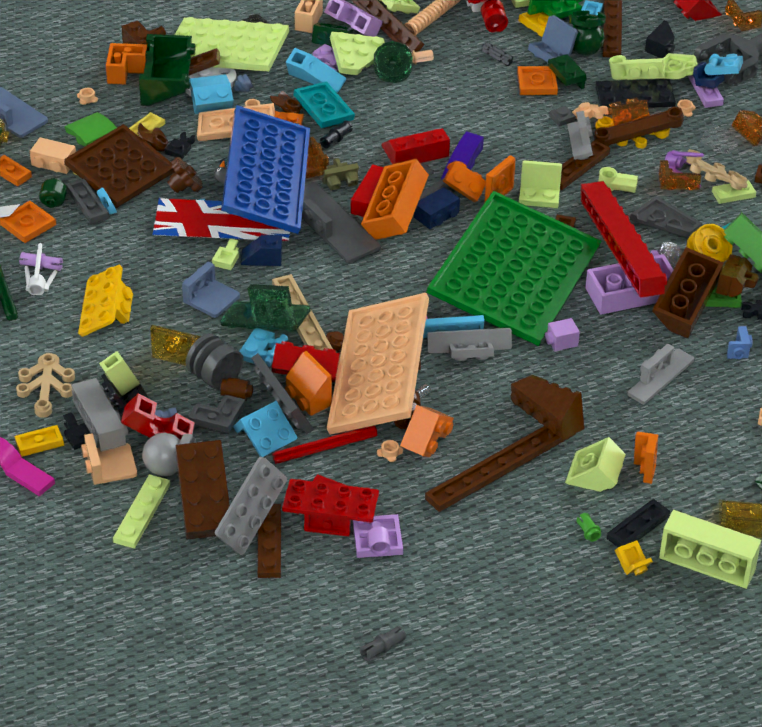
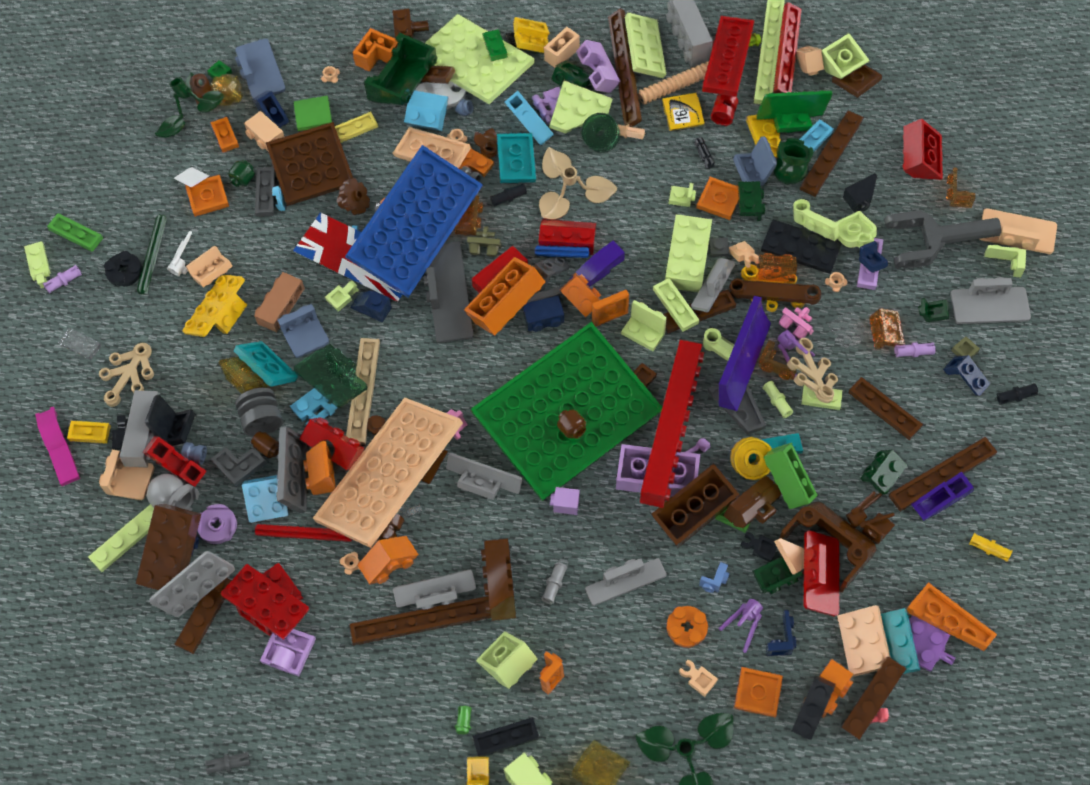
camera: 30 degrees right, 20 degrees up
(45, 129) = (271, 108): none -> dark blue slope
(46, 261) = (194, 242): lavender pin -> none
(72, 274) = (208, 266): none -> light nougat bracket
(119, 373) = (172, 402): yellowish green arch -> none
(155, 138) = (352, 140): reddish brown plate -> none
(166, 278) = (279, 301): none -> nougat brick
(180, 147) = (373, 158): black plate -> none
(189, 326) = (265, 363): none -> teal plate
(243, 464) = (224, 531): none -> lavender plate
(244, 24) = (494, 45): none -> green plate
(270, 12) = (530, 34): none -> yellow slope
(382, 129) = (555, 164): none -> tan plant
(425, 156) = (562, 251): none -> blue axle
(454, 324) = (478, 452): medium azure tile -> none
(456, 30) = (683, 111): none -> slope
(486, 441) = (434, 590): none -> light grey bracket
(501, 89) = (682, 196): none -> yellowish green bracket
(530, 269) = (571, 424): none -> reddish brown head
(539, 125) = (688, 252): none -> yellowish green brick
(570, 166) = (676, 304): none -> yellowish green plate
(596, 398) = (554, 583): none -> light grey pin
(647, 177) = (744, 356): none -> dark purple arch
(670, 249) = (722, 455): clear gear -> none
(672, 141) = (803, 327): none -> bright pink hips
(697, 204) = (778, 399): none -> yellowish green pin
(724, 65) = (899, 254): medium azure plate -> none
(746, 380) = (681, 616): none -> orange plate

